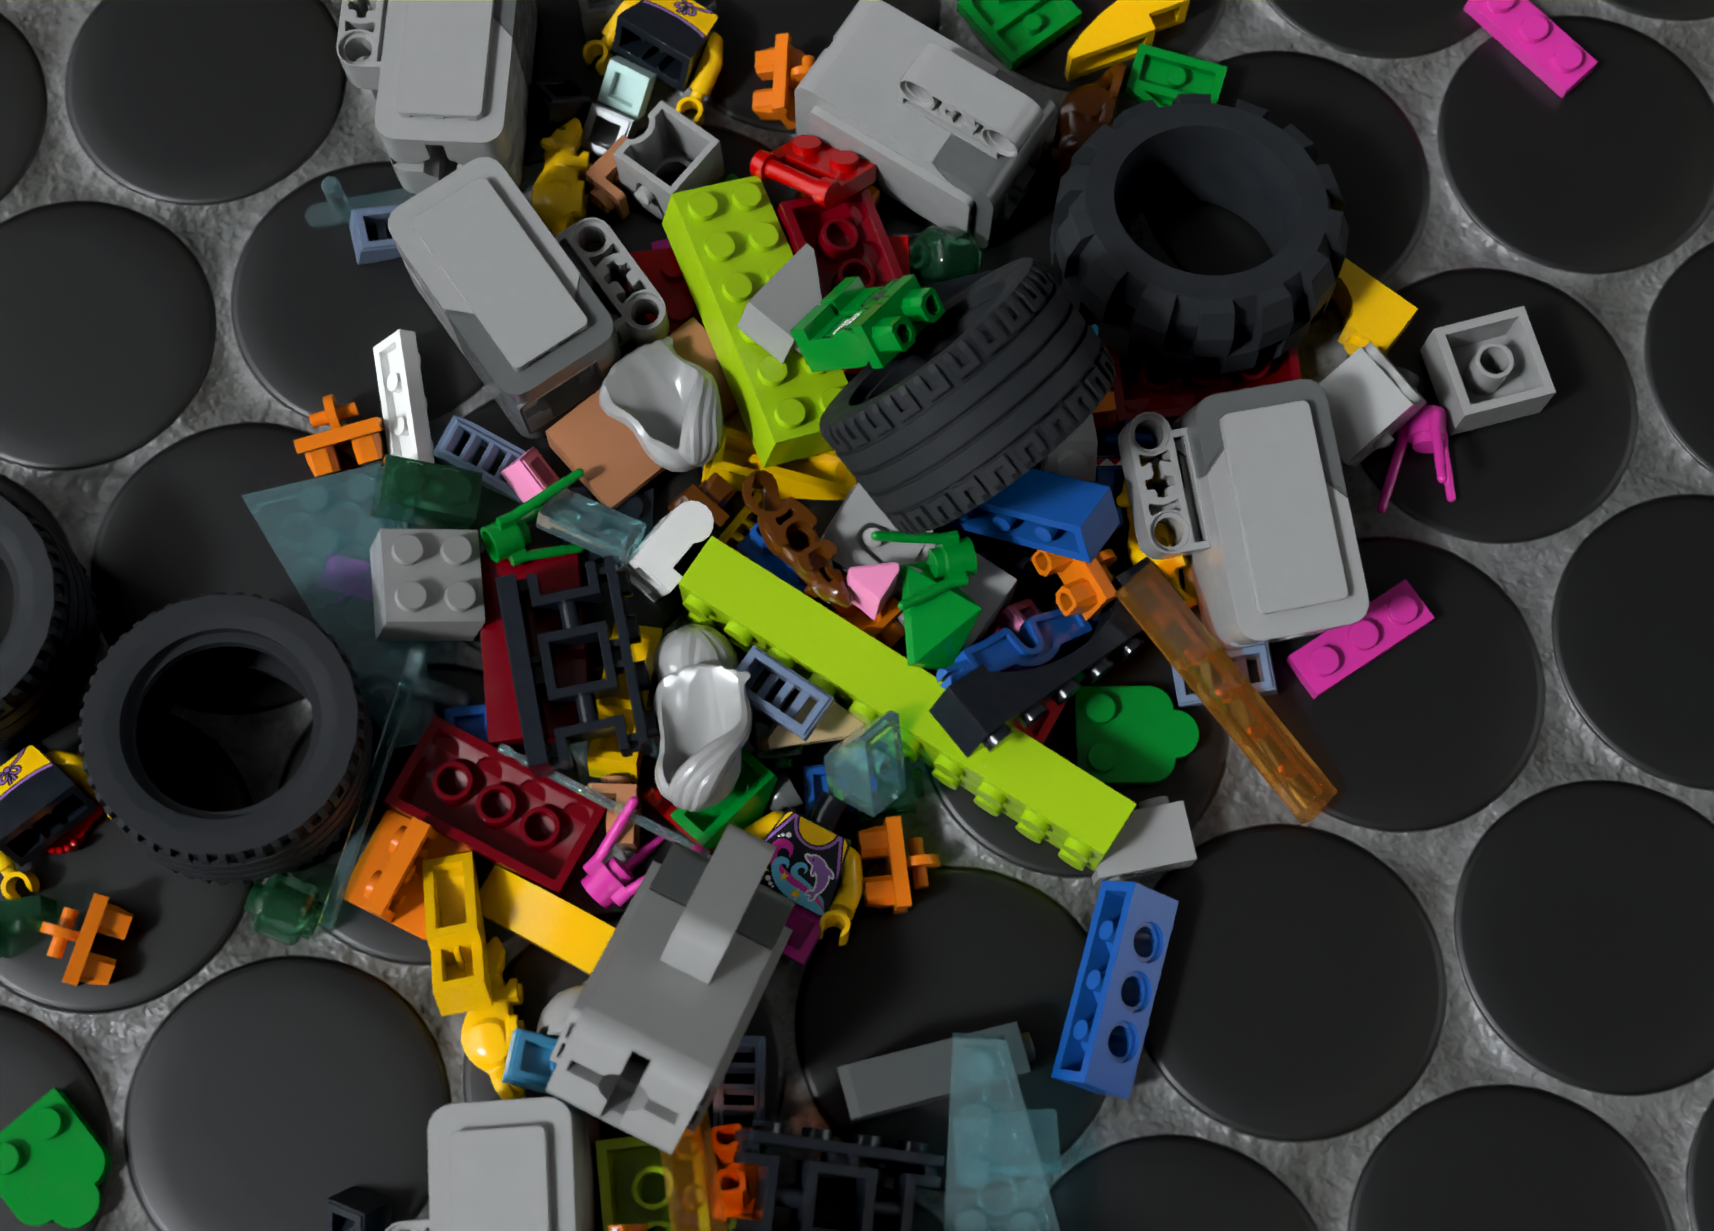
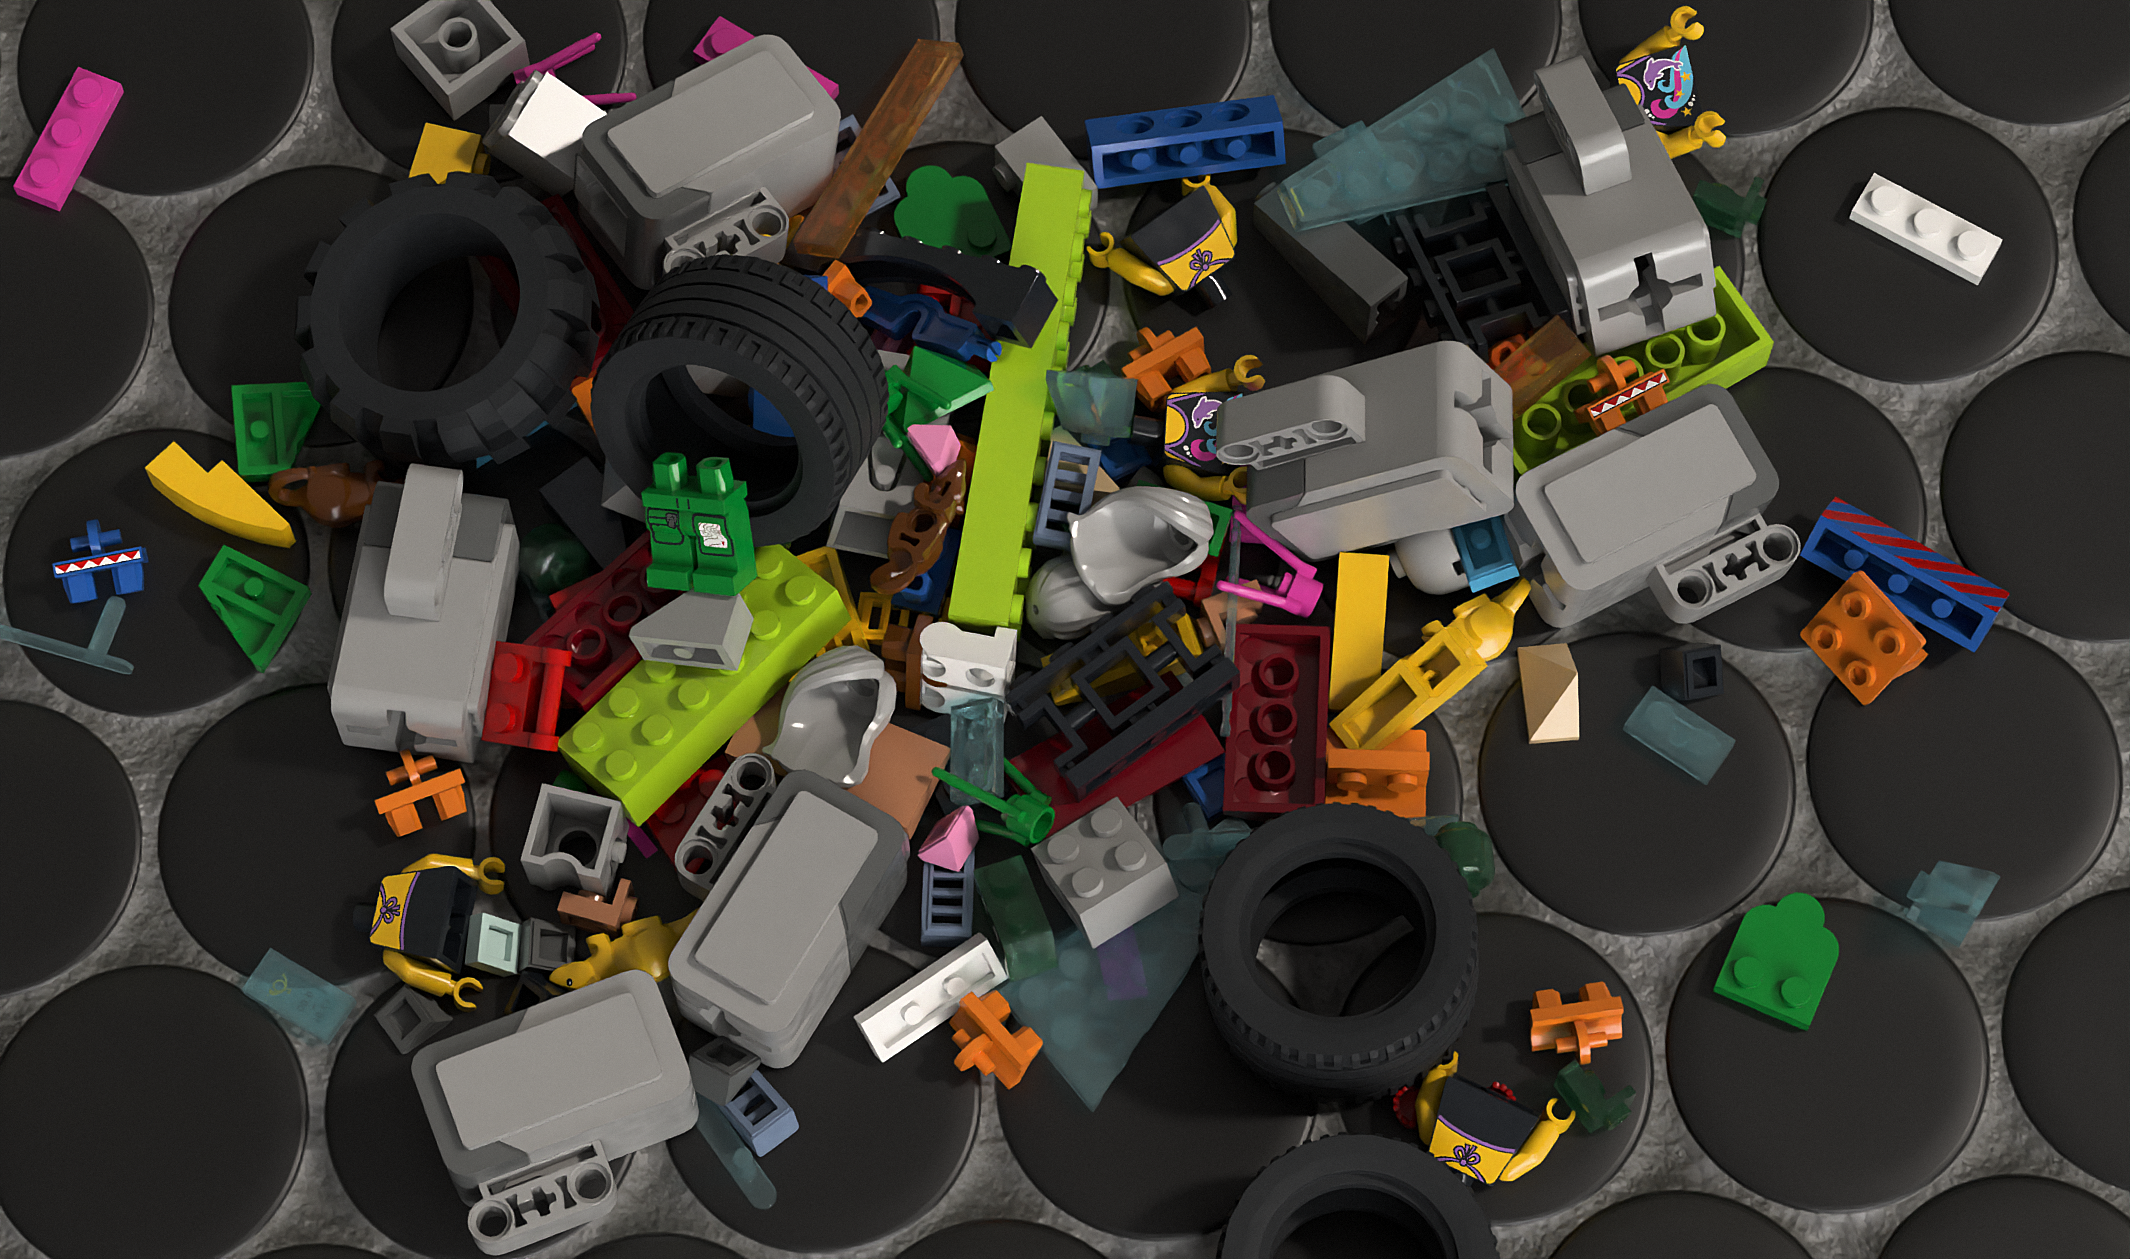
camera: 115 degrees left, 5 degrees down
(305, 1180) = (1679, 735): none -> clear light blue plate
(409, 1075) = (1549, 693): none -> tan slope
(1008, 934) = (1178, 246): none -> torso

